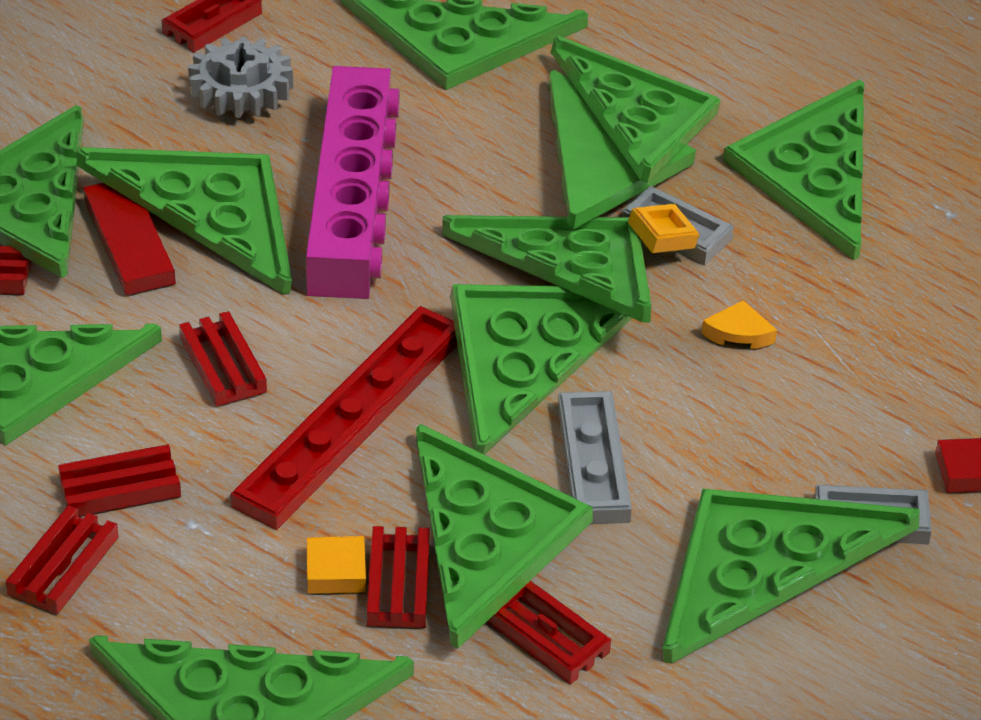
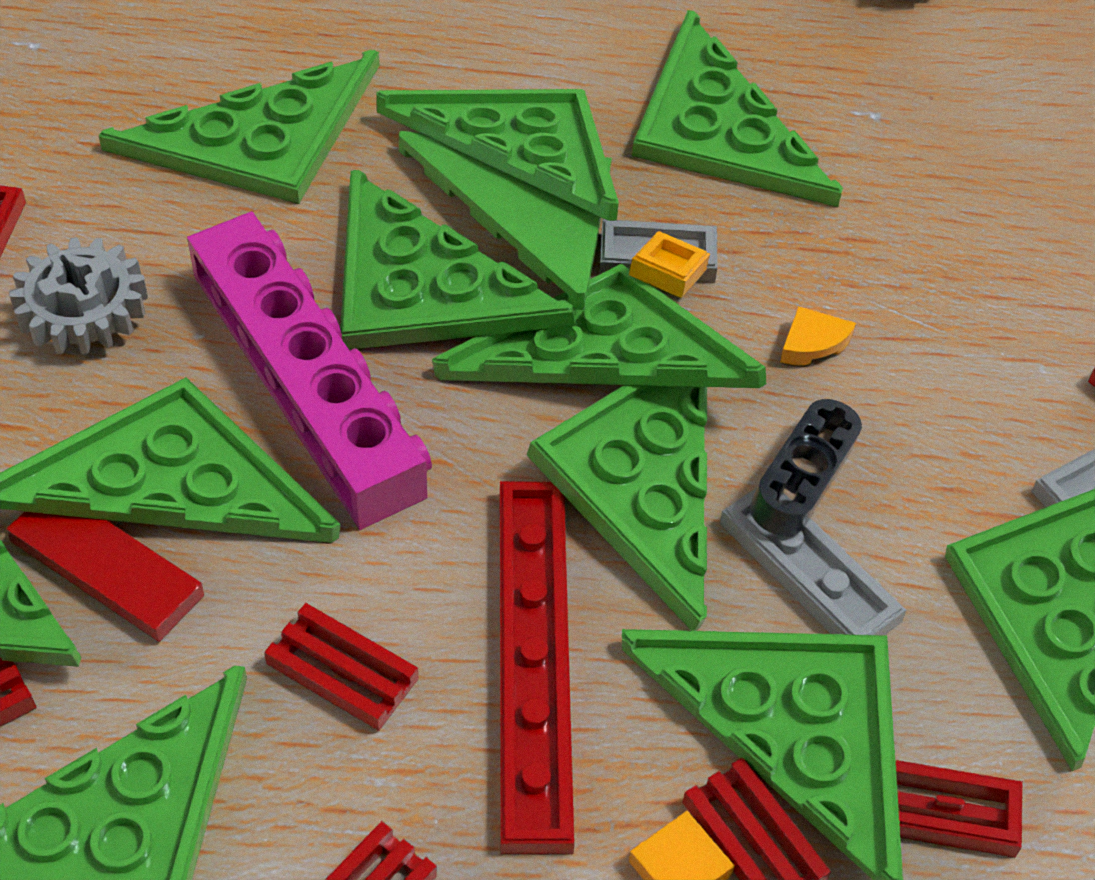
camera: 35 degrees left, 10 degrees up
(482, 166) = (426, 280): none -> bright green tile
(608, 399) = (807, 486): none -> black beam

